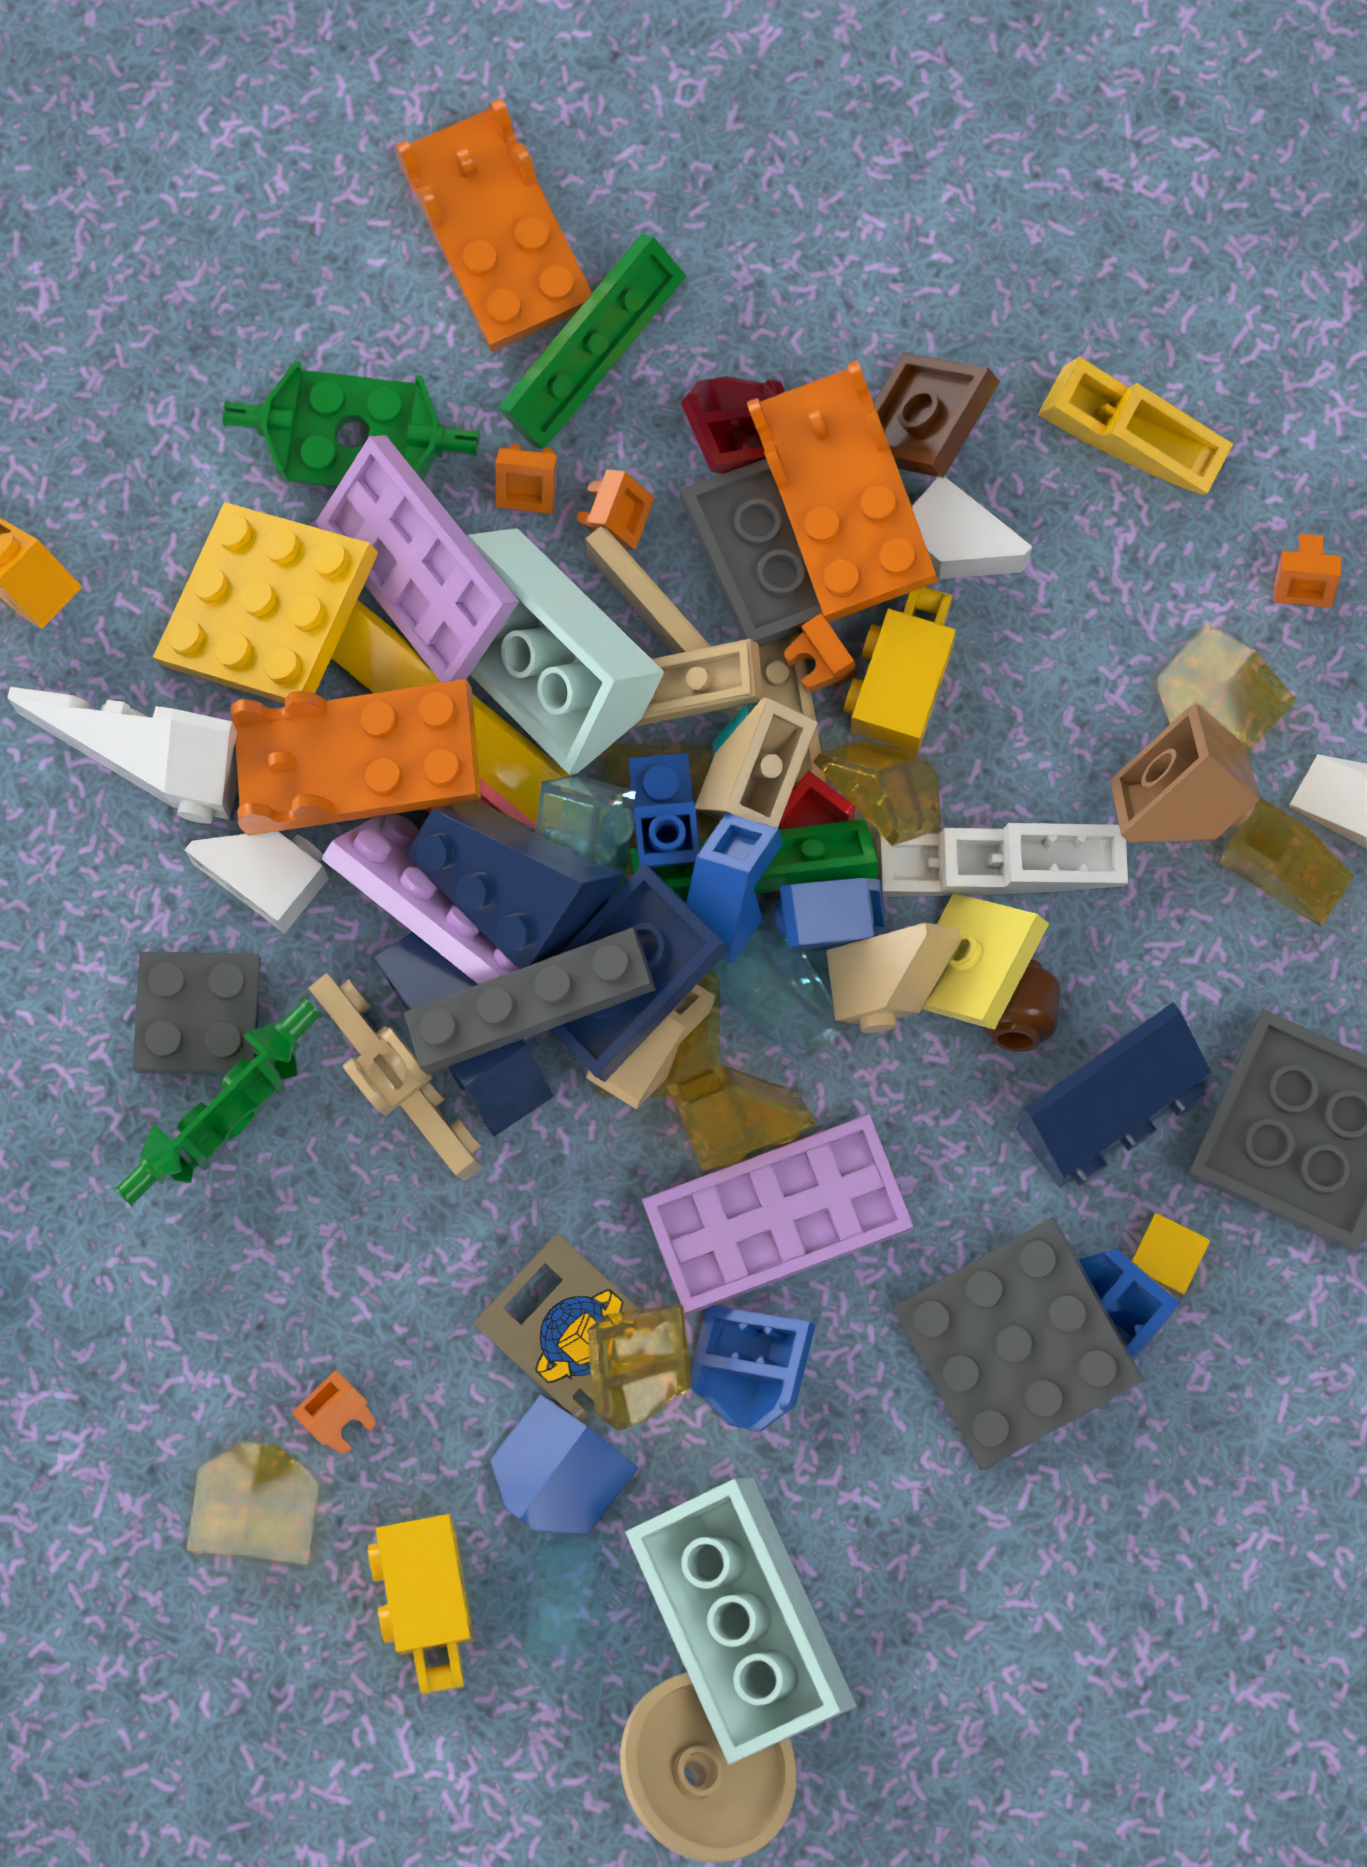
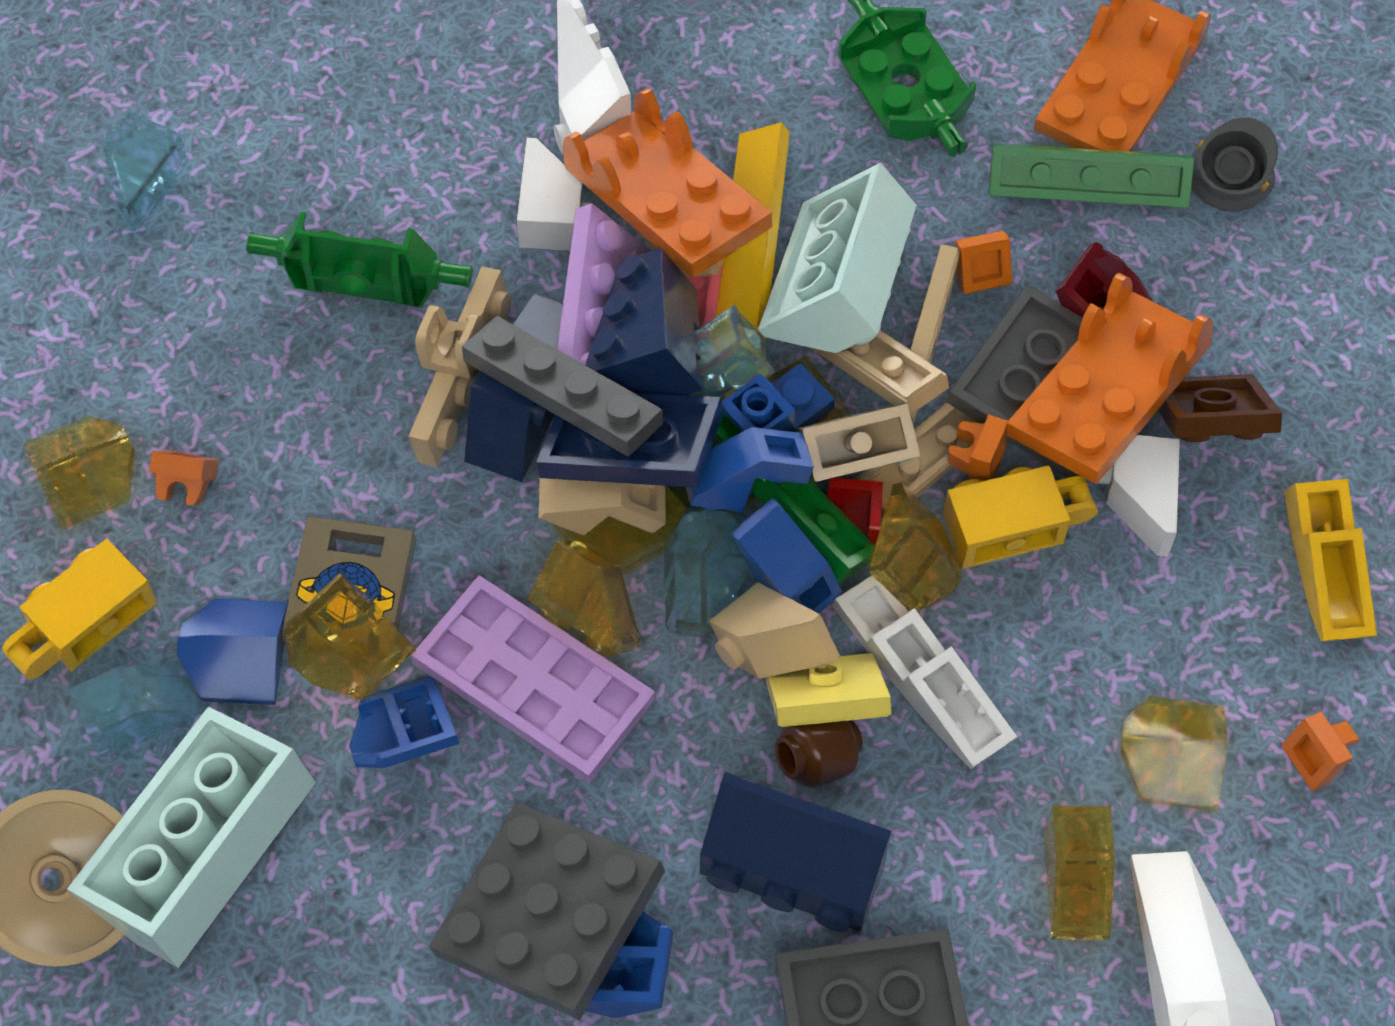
camera: 50 degrees right, 15 degrees down
(195, 1011) = (431, 208): dark grey plate -> none
(265, 604) = (742, 90): yellow plate -> none
(425, 567) = (839, 151): lavender plate -> none
(525, 479) = (957, 193): orange tile -> none
(673, 199) = (1235, 165): none -> dark grey piece
(1170, 1253) = (701, 986): yellow tile -> none
(1186, 783) = (1083, 754): medium nougat slope -> none

